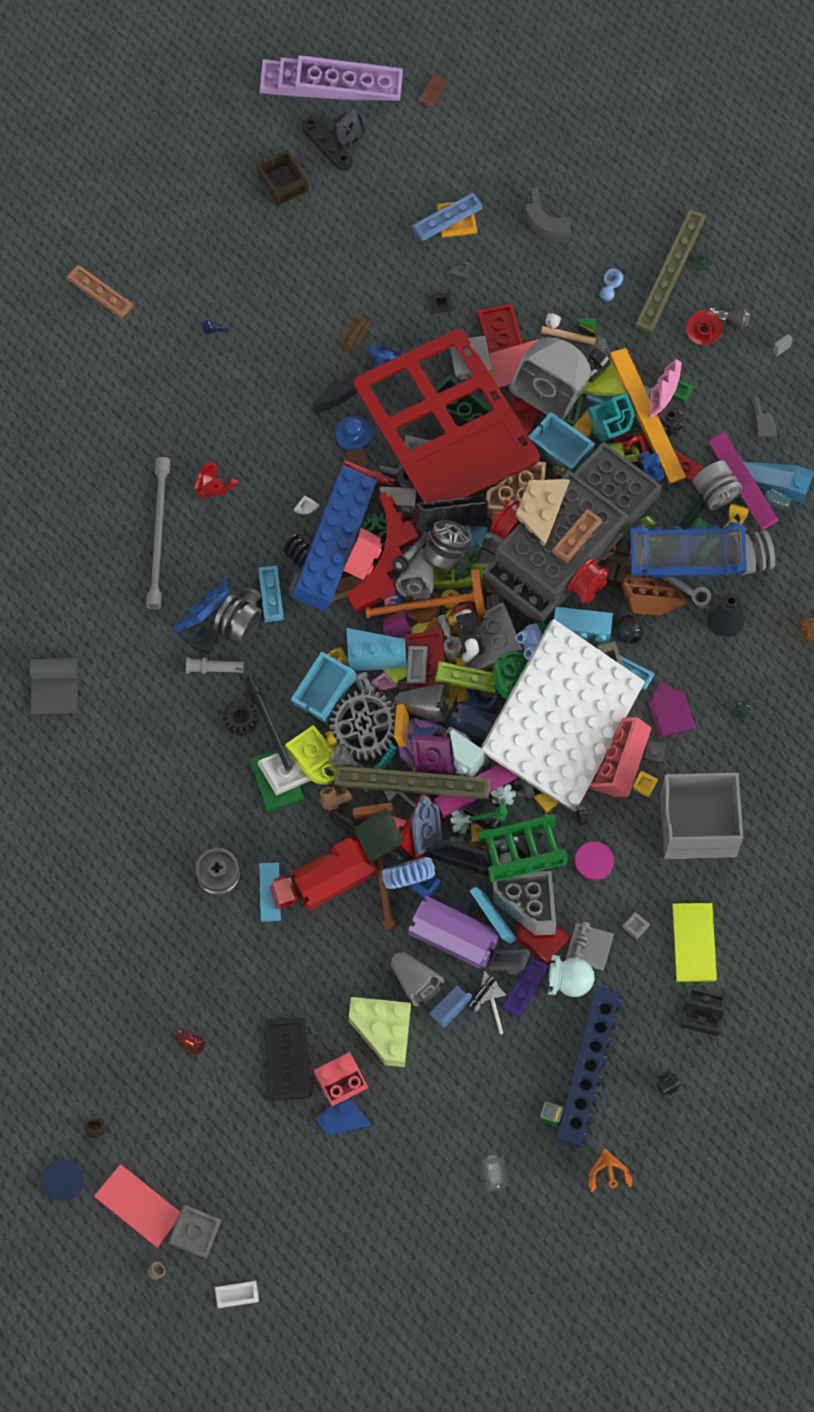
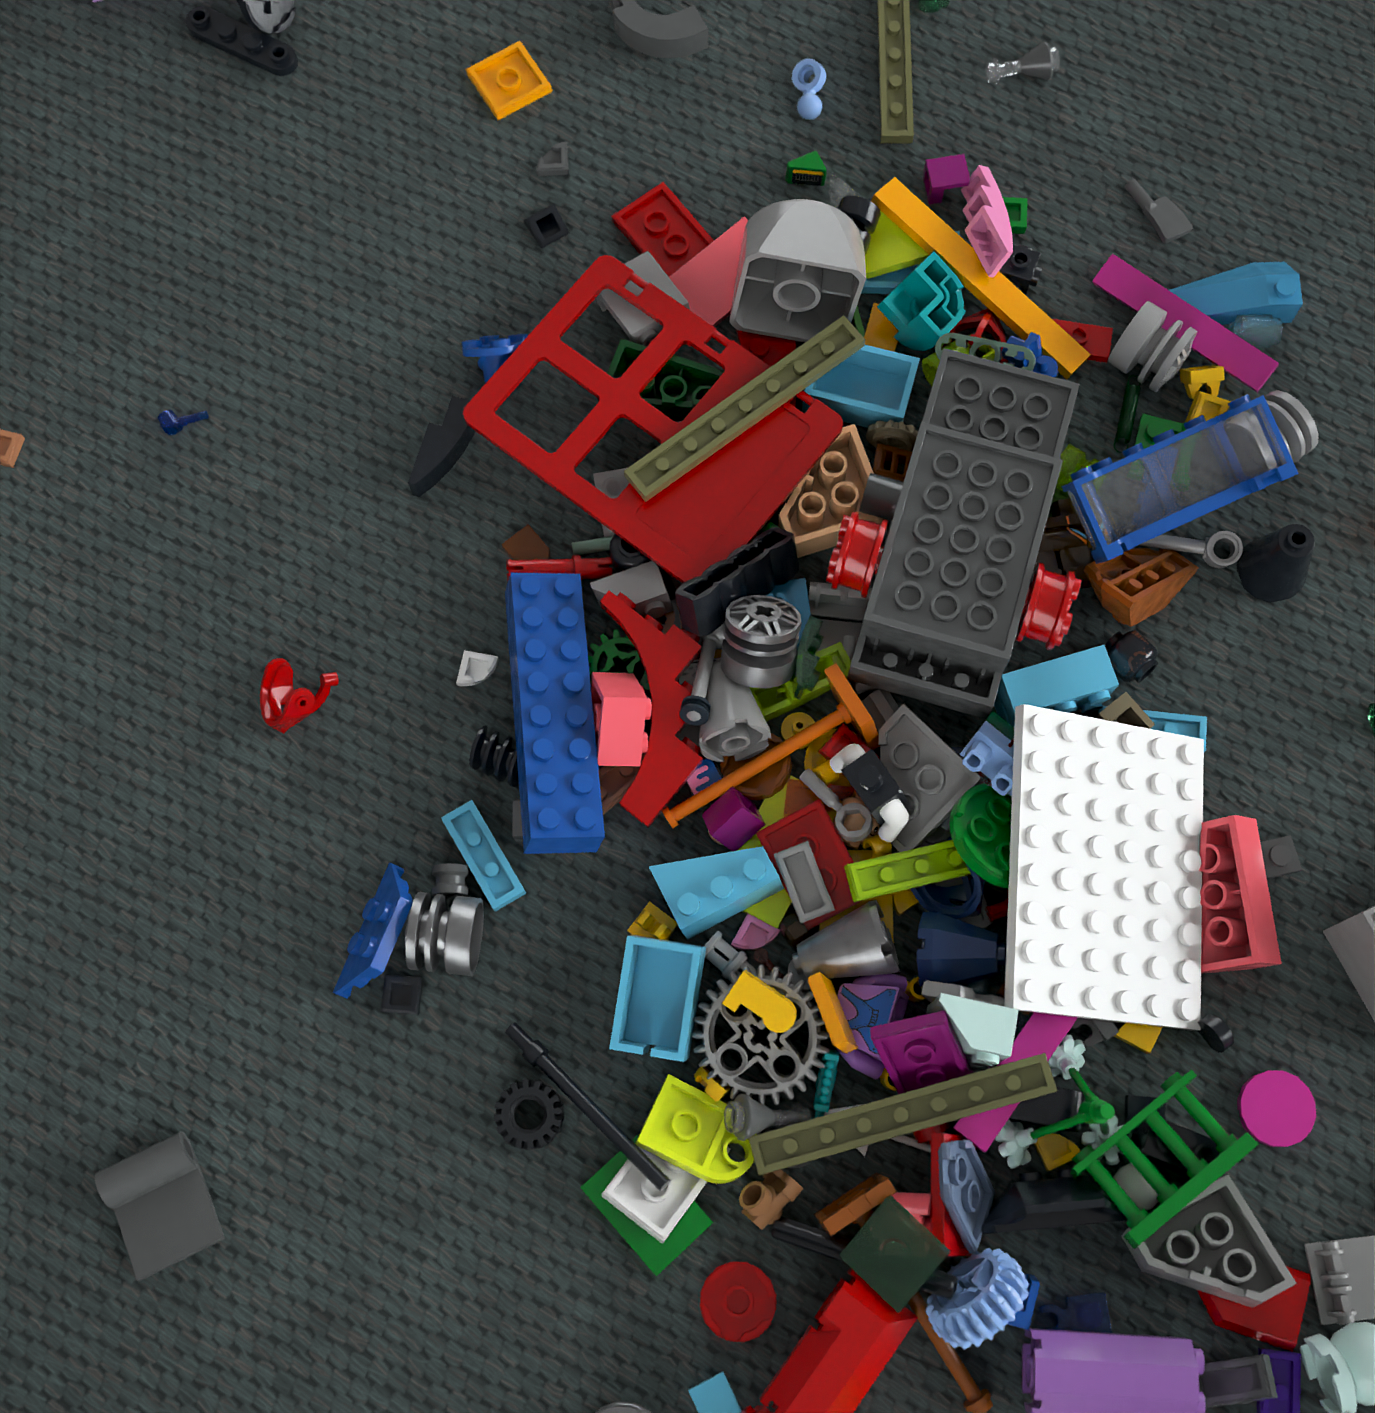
camera: 20 degrees left, 5 degrees up
(162, 468) = (276, 950): light grey hose -> none
(204, 665) = (423, 1042): light grey pin -> none
(289, 191) = (210, 141): dark brown window -> none
(299, 843) = (729, 1289): none -> red tile
(353, 433) = (499, 506): blue plate -> none
(362, 321) = (429, 307): clear orange tile -> none
(373, 709) = (773, 1007): none -> yellow leg
(447, 217) = (493, 82): medium blue tile -> none
(493, 432) = (744, 408): none -> olive plate
(493, 915) = (1164, 1308): medium azure tile -> none
(540, 506) = (909, 507): tan wing -> none
(552, 320) = (743, 182): white hinge -> none
(568, 335) = (764, 200): light nougat bar -> none
(577, 536) = (995, 535): nougat tile -> none
(634, 454) = (961, 341): none -> sand green beam
(645, 784) = (1294, 925): yellow plate -> none
(658, 357) = (944, 174): none -> magenta panel
(670, 710) = (1263, 771): magenta tile -> none
(702, 320) = (995, 85): red dish -> none
(782, 345) = (1130, 77): light grey tile -> none

